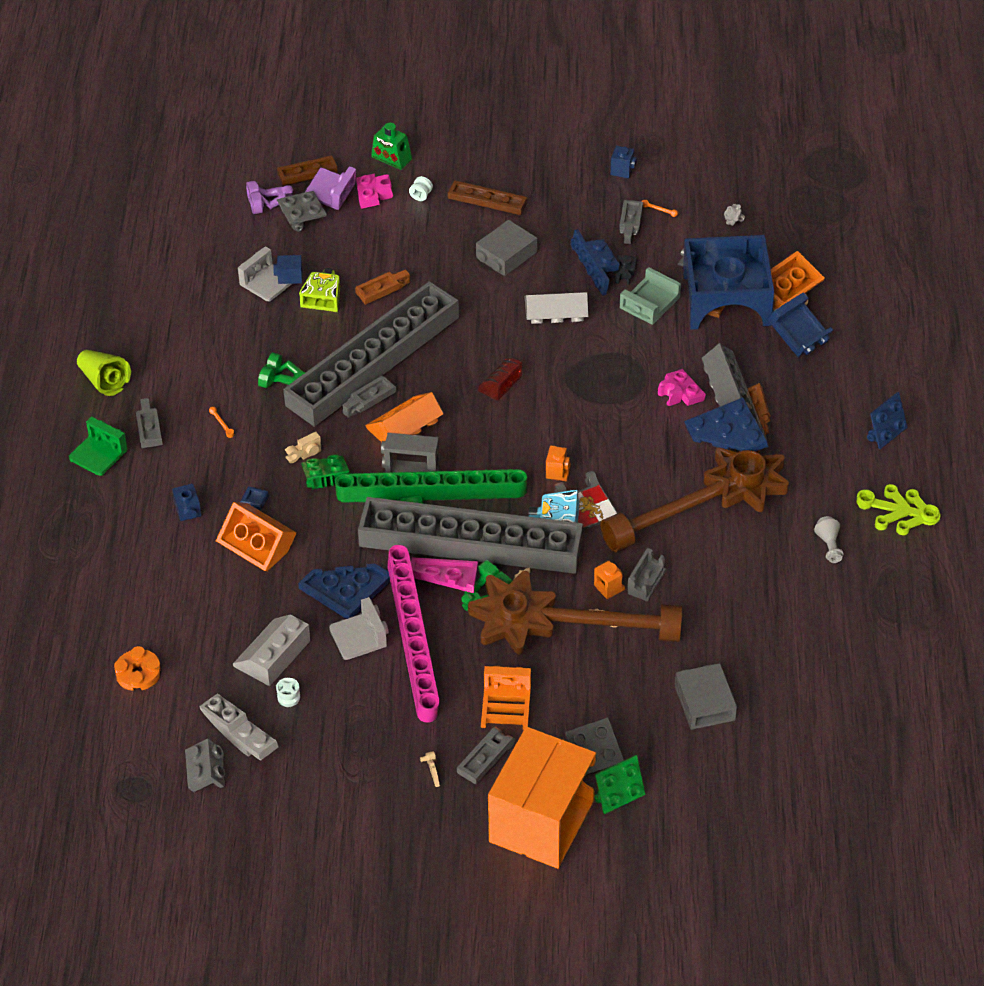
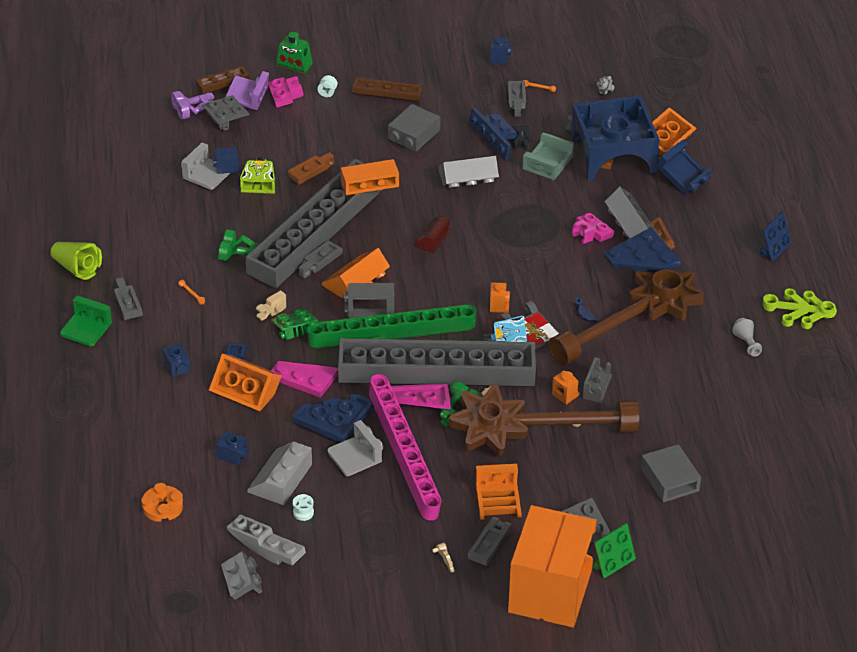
camera: 10 degrees left, 5 degrees down
(225, 613) = (232, 448): none -> dark blue brick
(323, 536) = (306, 377): none -> dark pink wing
(439, 306) = (369, 177): none -> orange brick
(650, 490) = (584, 313): none -> dark blue piece

